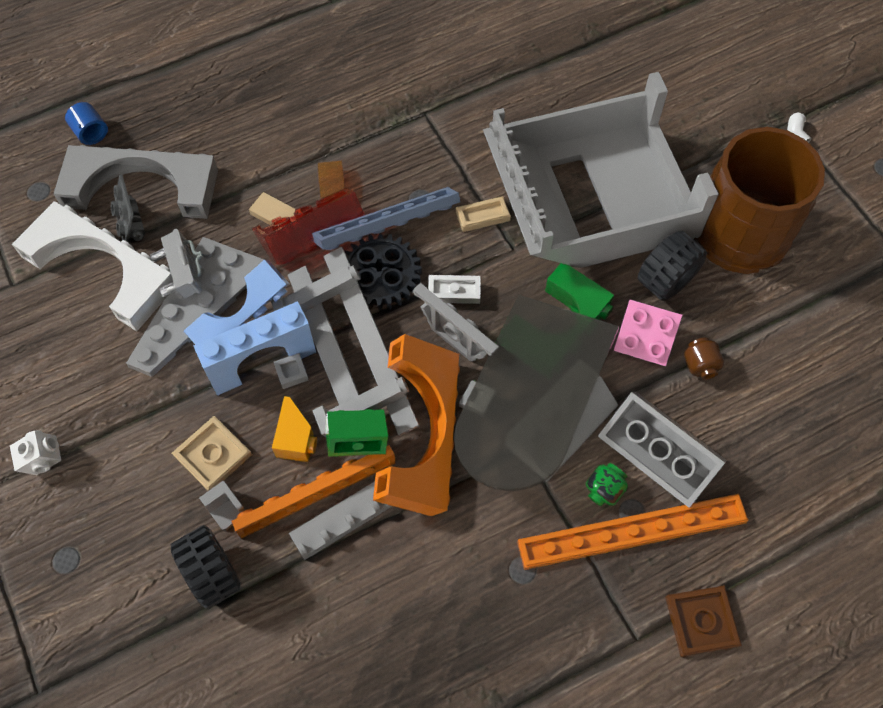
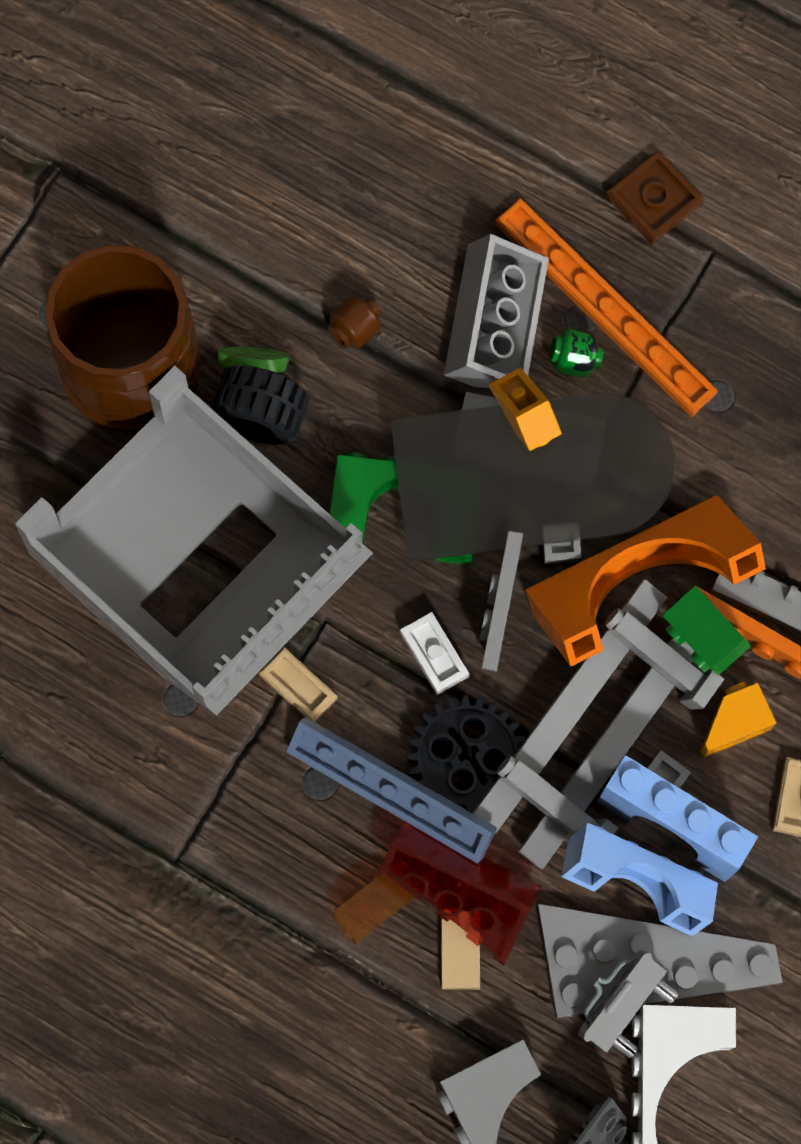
camera: 125 degrees left, 10 degrees up
(576, 398) = (526, 409): none -> light orange slope
(647, 332) = (359, 397): bright pink plate -> none
(707, 283) = (251, 356): none -> bright green tile

